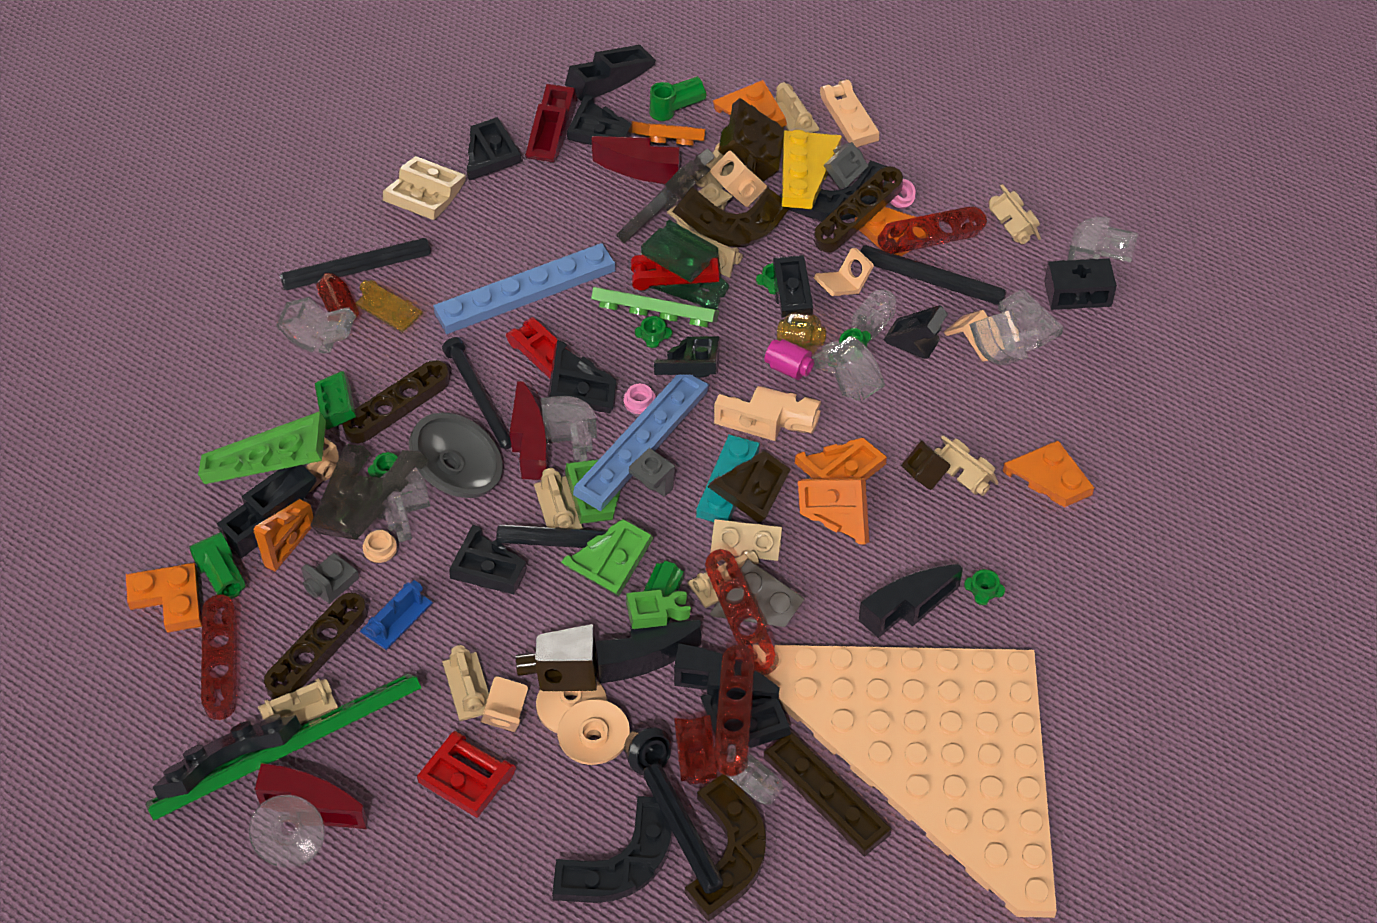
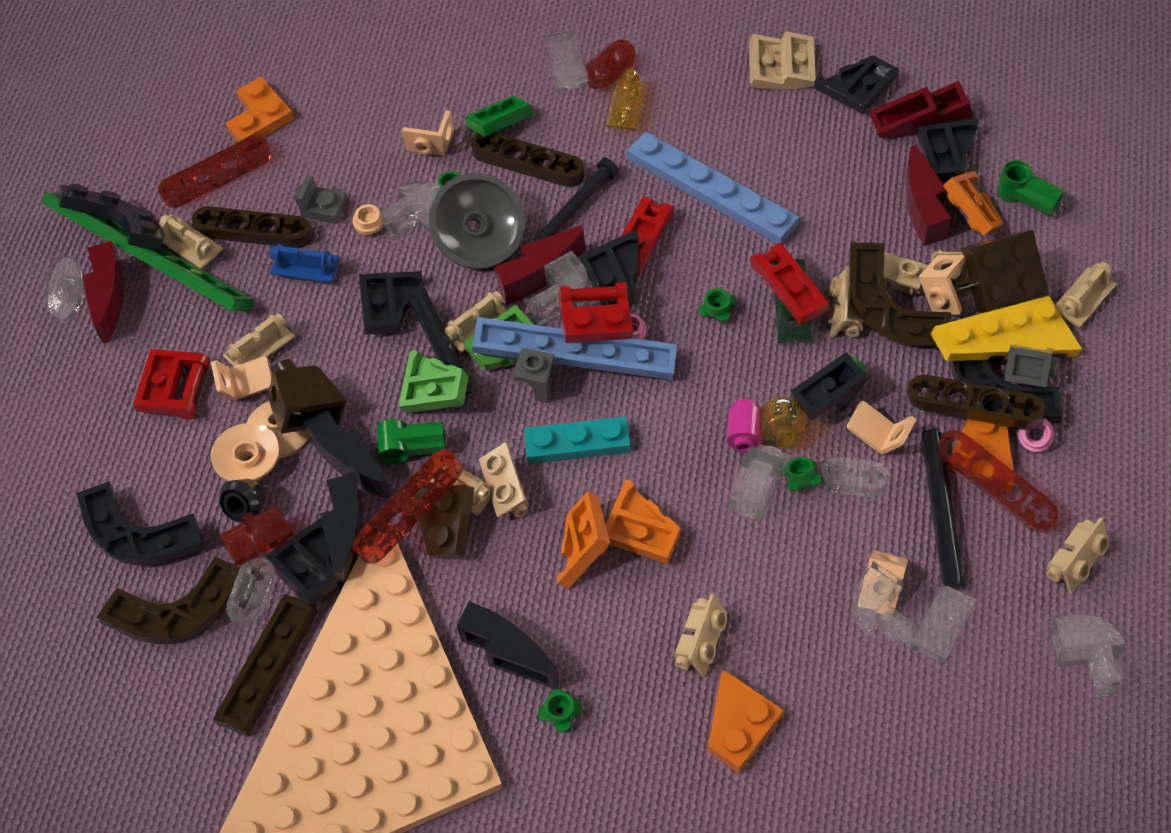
camera: 70 degrees right, 5 degrees up
(217, 563) = (299, 120): green piece -> none
(262, 502) = (359, 125): black slope -> none
(275, 449) = (411, 97): bright green wing -> none
(283, 533) = (340, 148): orange wing -> none
(356, 263) = (663, 59): black axle -> none
(356, 500) = (403, 174): clear smoke wing -> none
(608, 70) = (1027, 123): black slope -> none
(631, 409) = (599, 321): none -> red plate
(652, 609) = (376, 433): bright green plate -> none
(667, 198) = (864, 229): clear smoke wing -> none
(668, 310) = (746, 292): bright green plate -> none
(679, 251) = (798, 271): clear green plate -> none
(683, 828) = (167, 559): black axle -> none
(693, 357) = (695, 346): black wing -> none
(736, 709) = (295, 548): clear red beam -> none
(752, 485) = (571, 459): dark brown wing -> none
(755, 95) = (1066, 258): orange wing -> none
(767, 413) = (671, 439): light nougat plate -> none
(849, 113) = (1122, 345): light nougat plate -> none
(917, 331) = (849, 525): black slope -> none
(926, 465) = (679, 598): dark brown slope -> none
(1080, 284) = (1032, 661): black brick -> none

